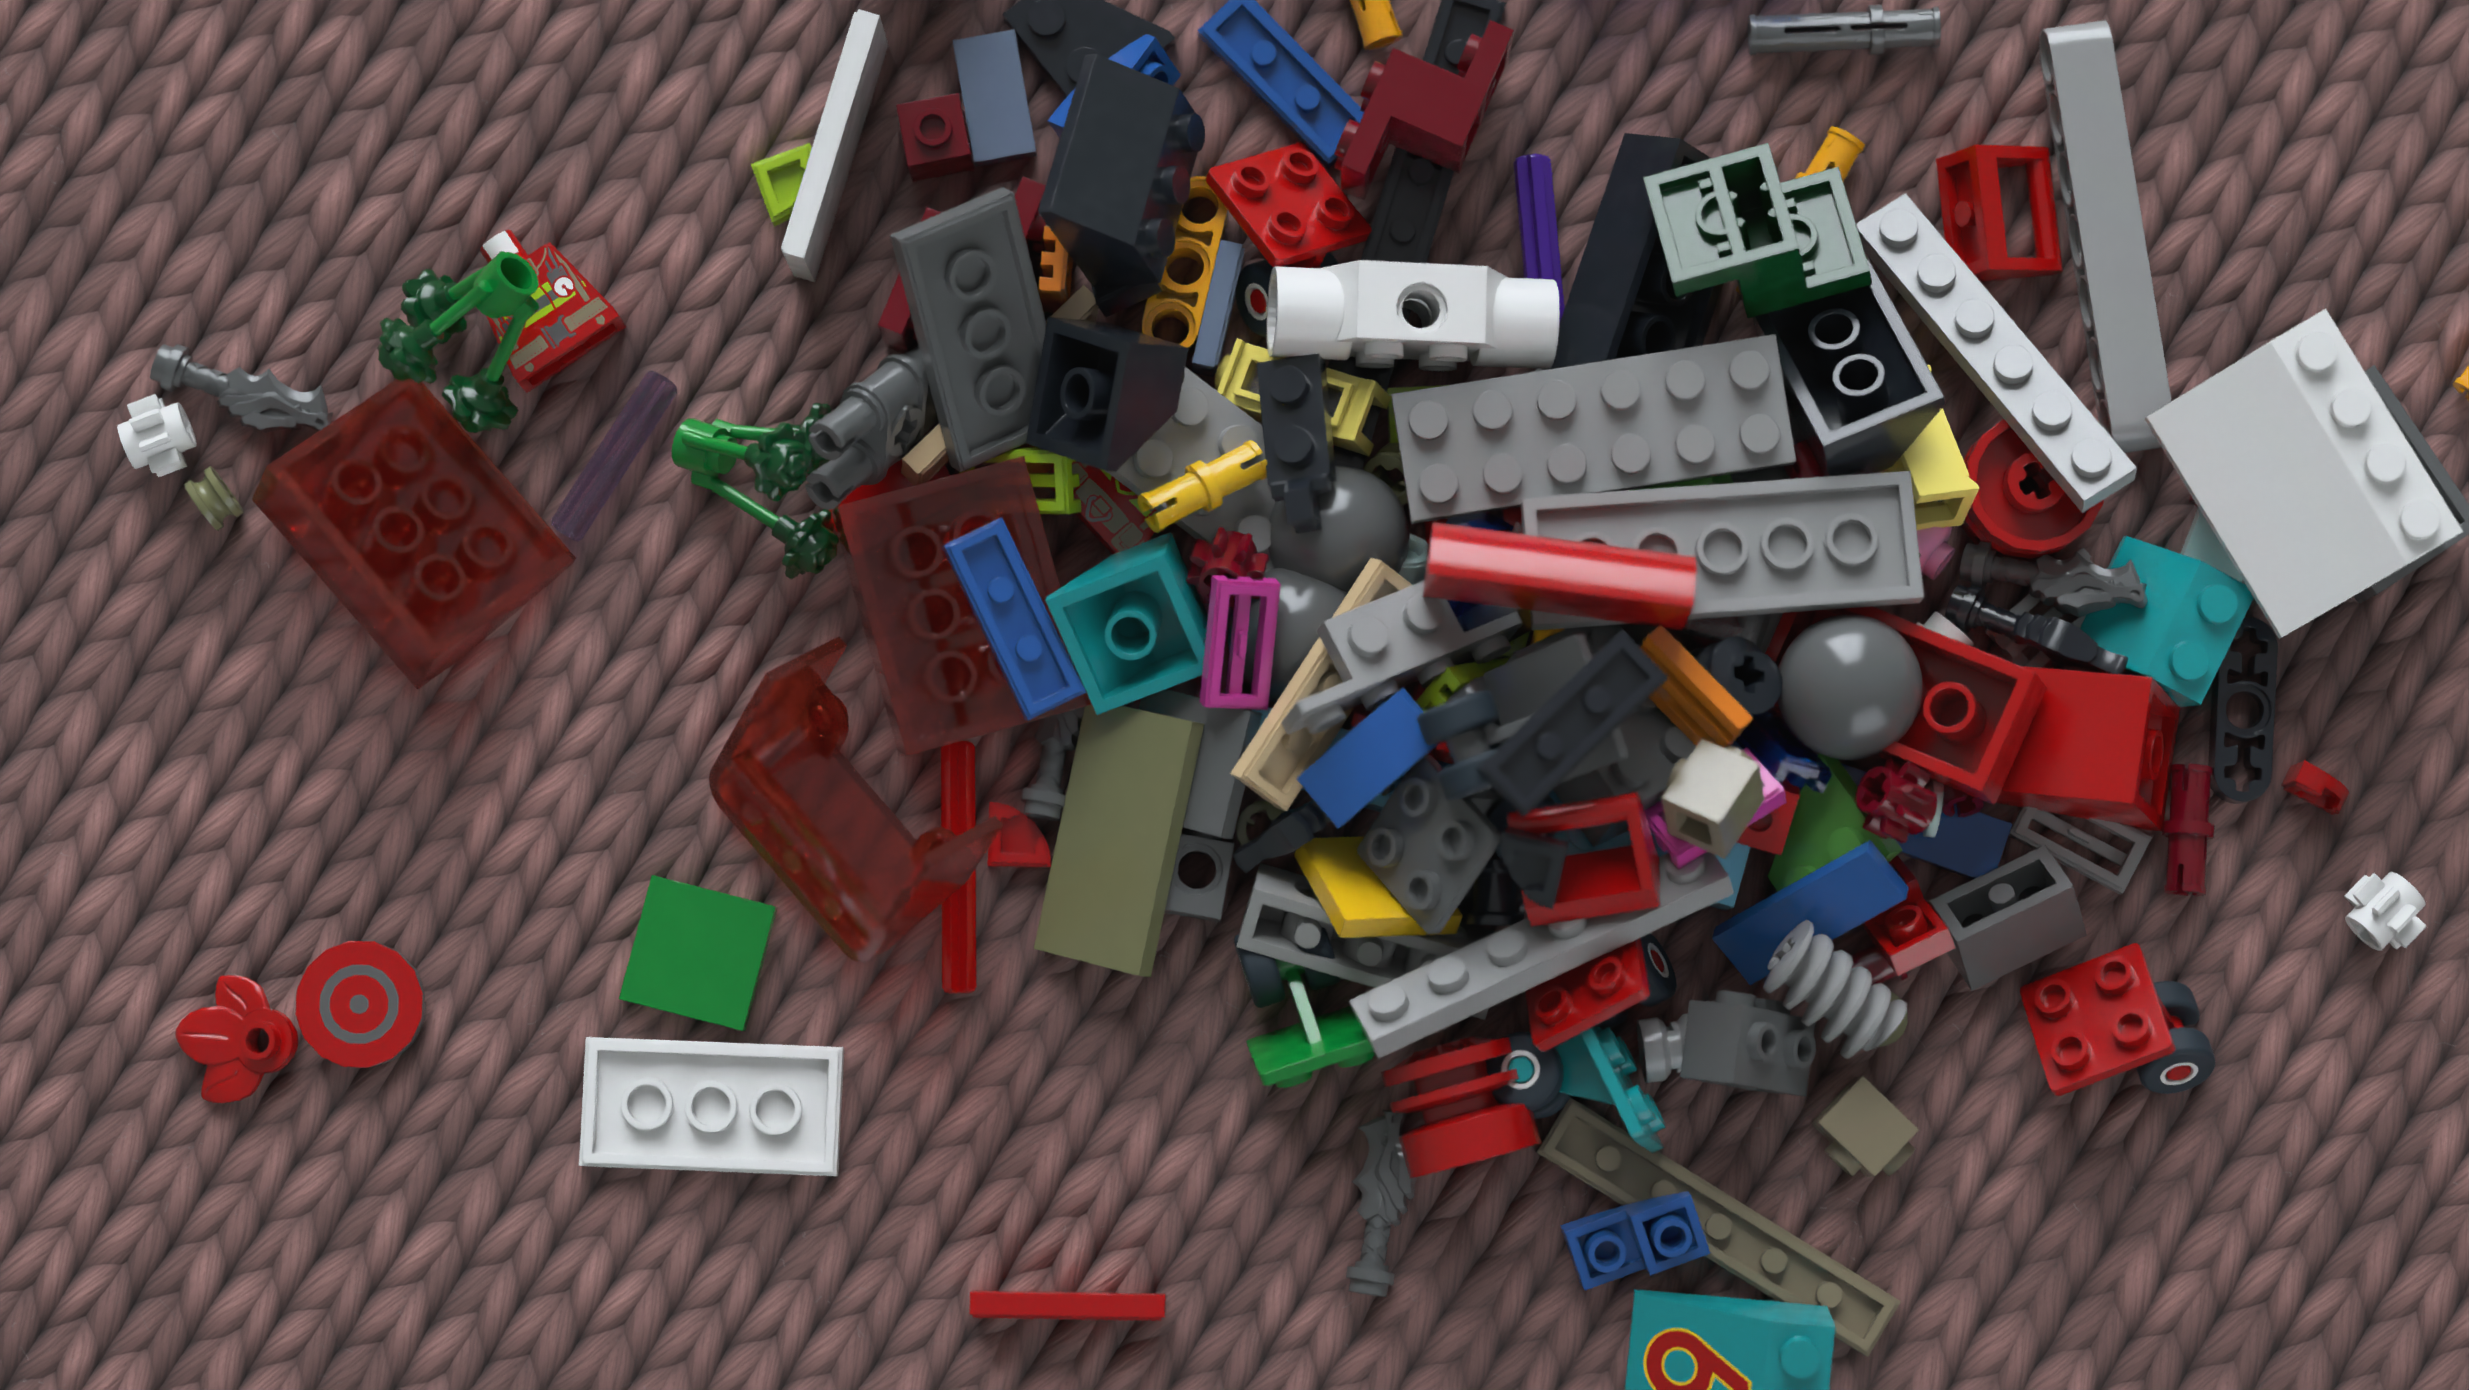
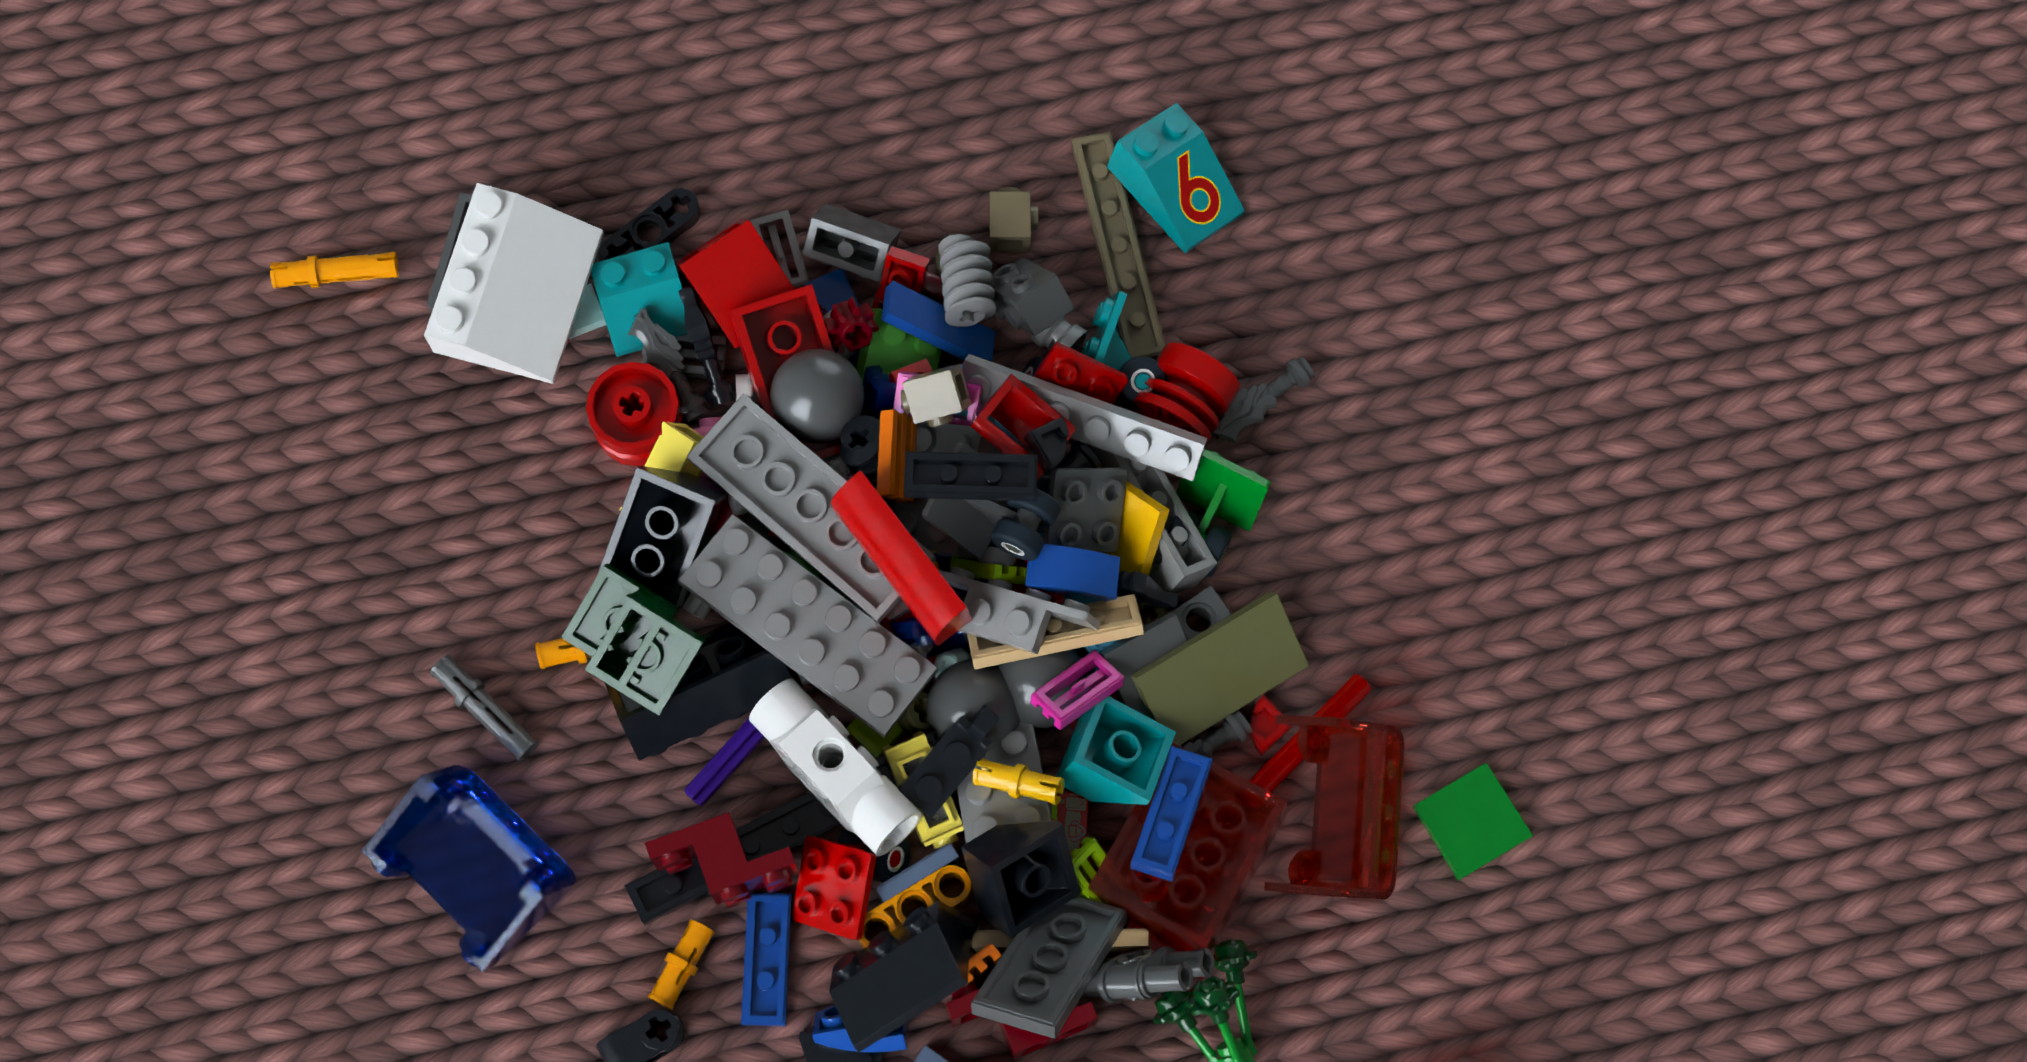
camera: 135 degrees left, 10 degrees down
(228, 1039) = (1745, 1006): red plate -> none
(360, 1004) = (1662, 958): red tile -> none
(711, 1106) = (1534, 745): white tile -> none
(1067, 1305) = (1451, 491): red tile -> none
(1228, 555) = (1042, 738): dark red gear -> none
(1635, 1237) = (1154, 270): blue slope -> none
(1975, 214) = (519, 562): red tile -> none
(1995, 353) = (585, 482): plate -> none
(2105, 230) = (471, 494): light grey beam -> none
(2114, 1019) = (856, 157): red plate -> none
(2188, 829) = (730, 206): dark red pin -> none
(2315, 787) = (656, 171): red tile -> none
(2385, 911) = (685, 89): white gear -> none

